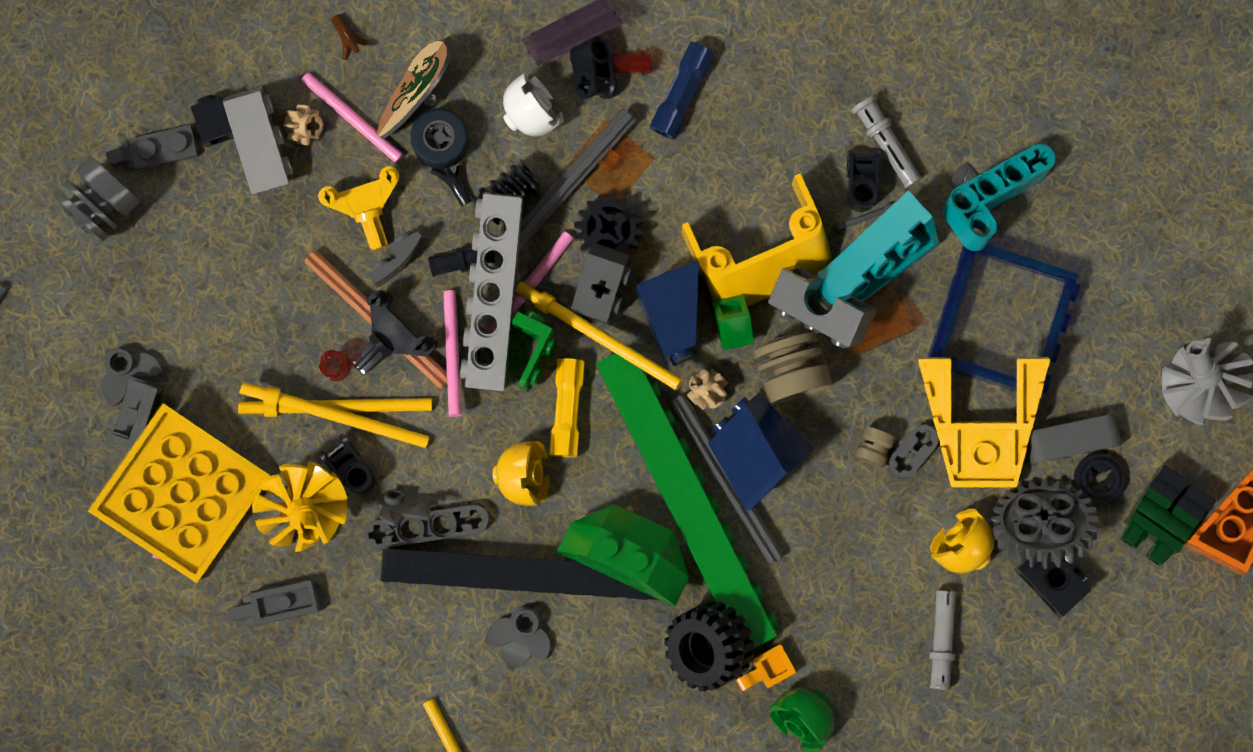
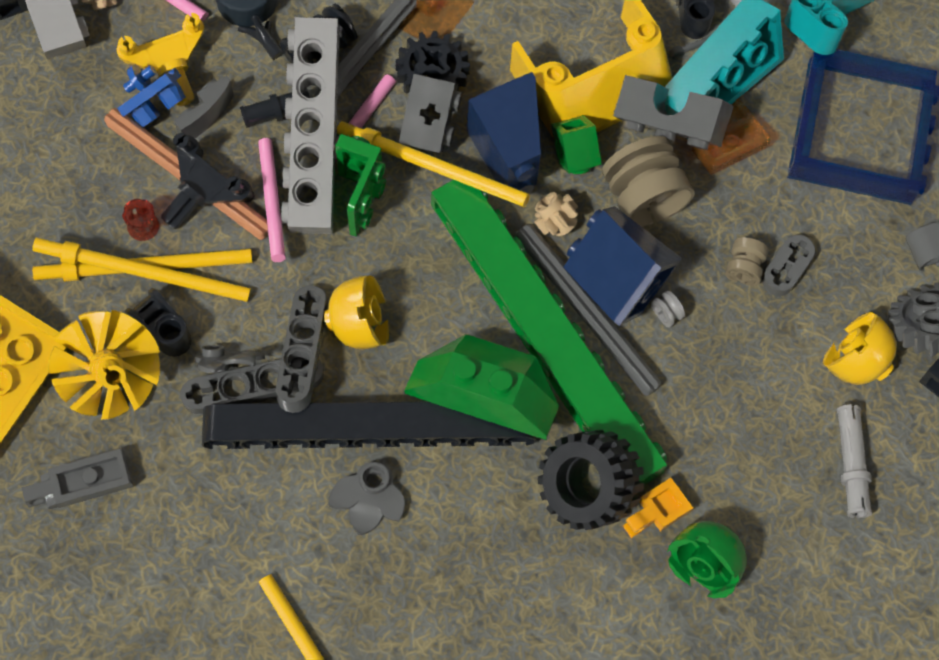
camera: 10 degrees left, 15 degrees down
(343, 238) = (139, 105): none -> blue hips
(475, 502) = (298, 347): none -> dark grey beam
(565, 432) = (402, 270): yellow axle -> none
(798, 487) = (668, 308): none -> light grey bush
(984, 450) = (863, 255): yellow wing -> none

